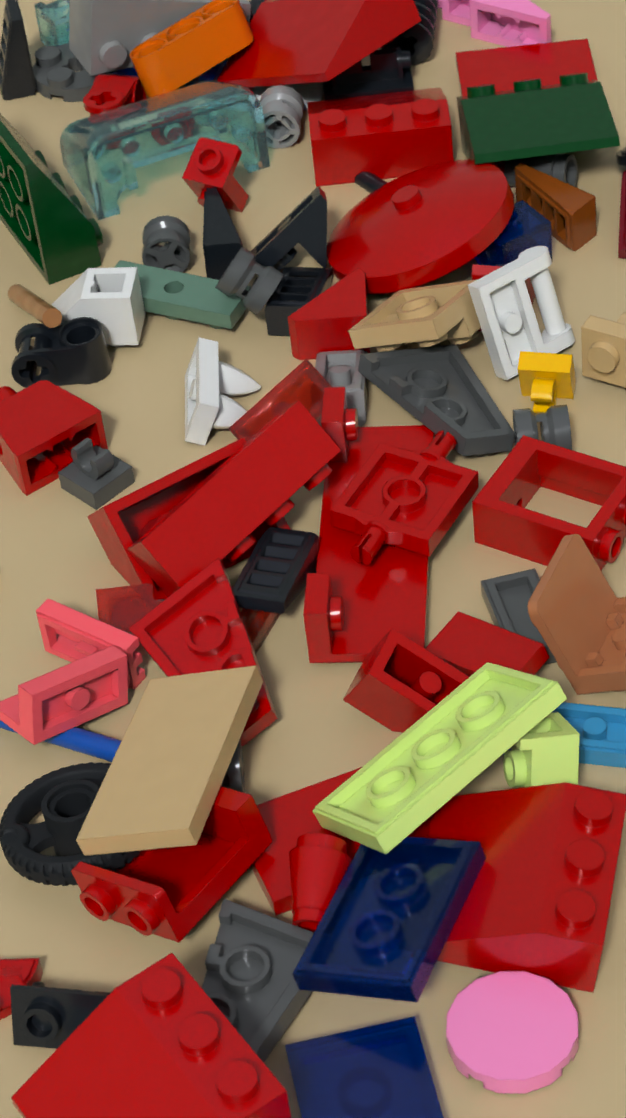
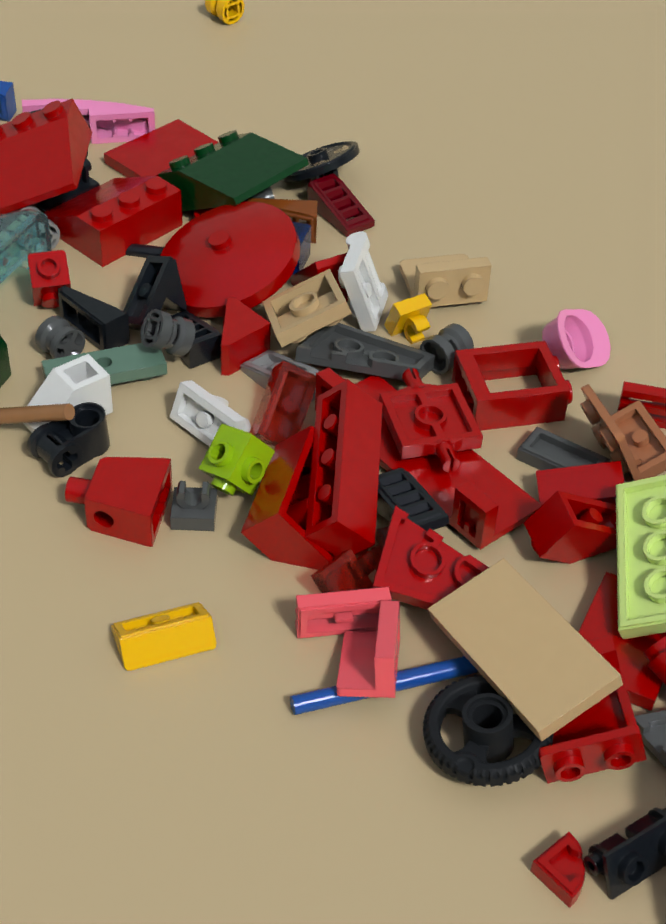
camera: 50 degrees left, 0 degrees up
(161, 441) = (236, 461): none -> lime brick

